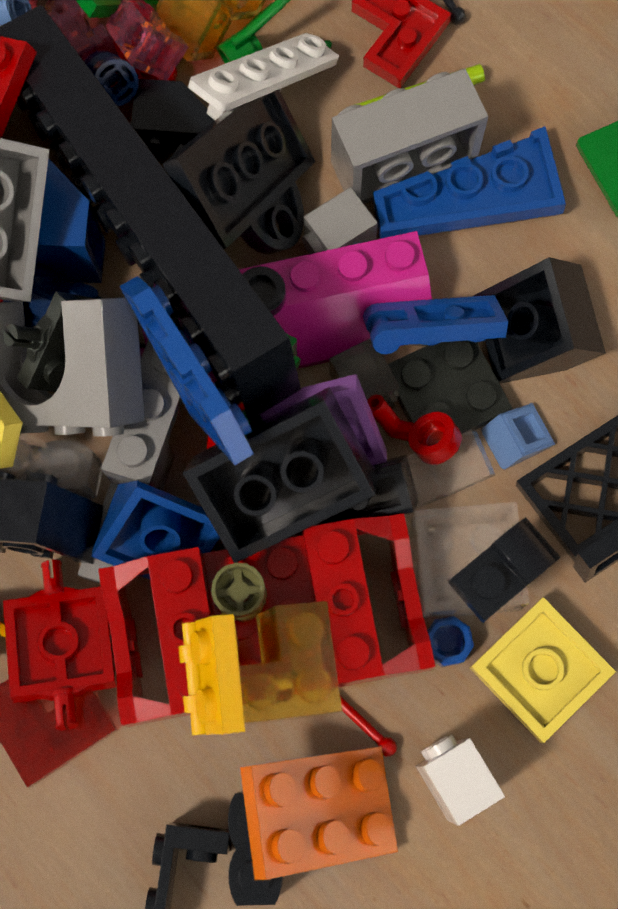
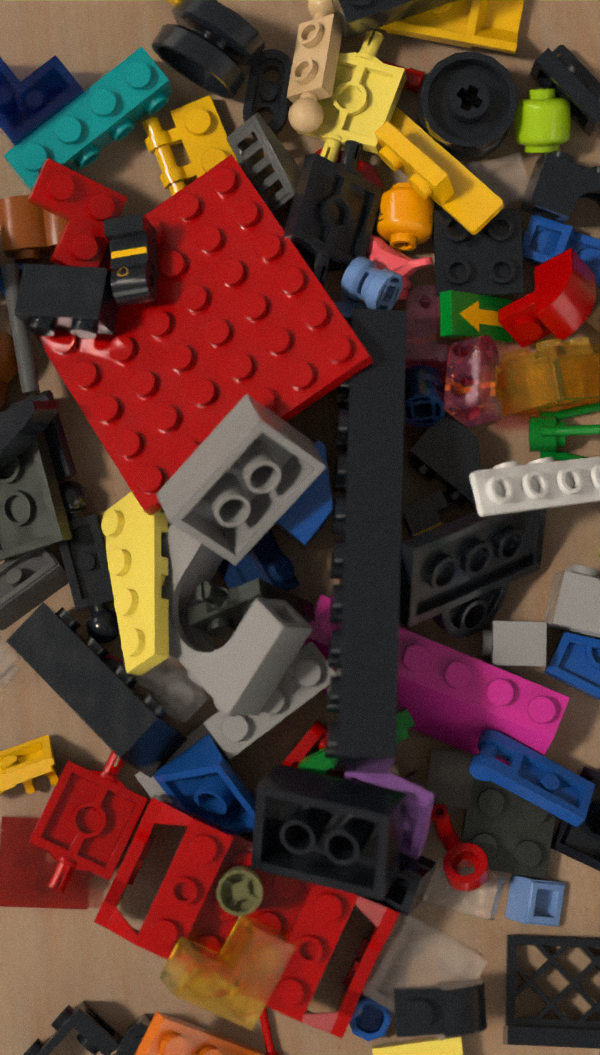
camera: 30 degrees right, 10 degrees up
(189, 371) = (312, 720): blue plate -> none
(212, 676) = (179, 948): yellow plate -> none
(268, 286) = (416, 669): black tile -> none

